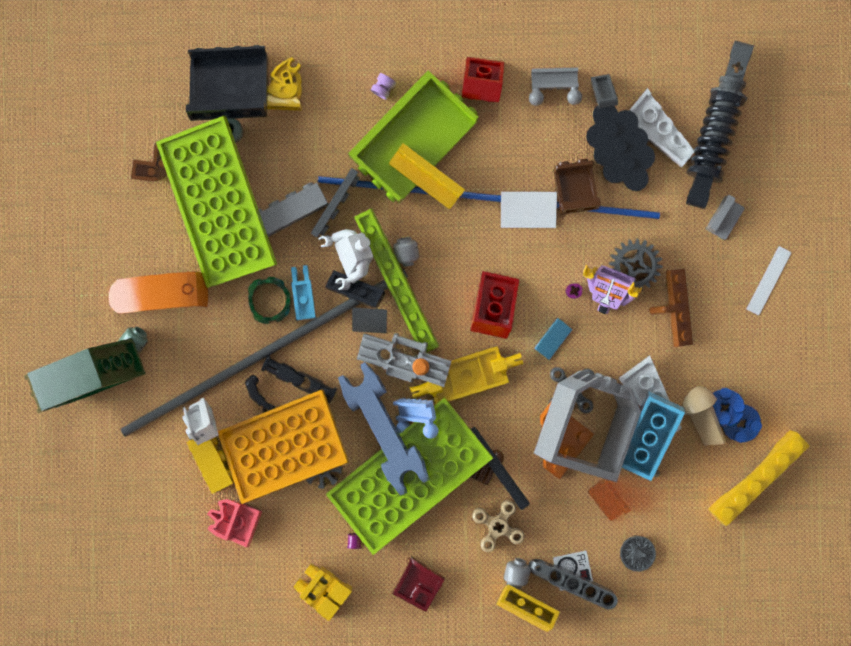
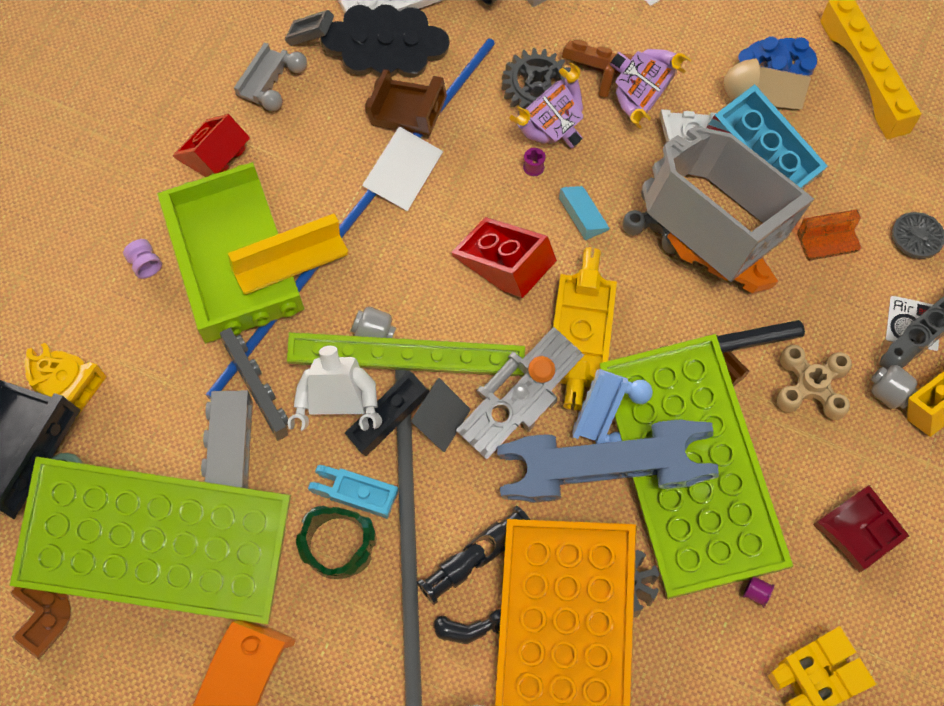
camera: 60 degrees left, 25 degrees down
(665, 336) = (644, 79): none -> torso

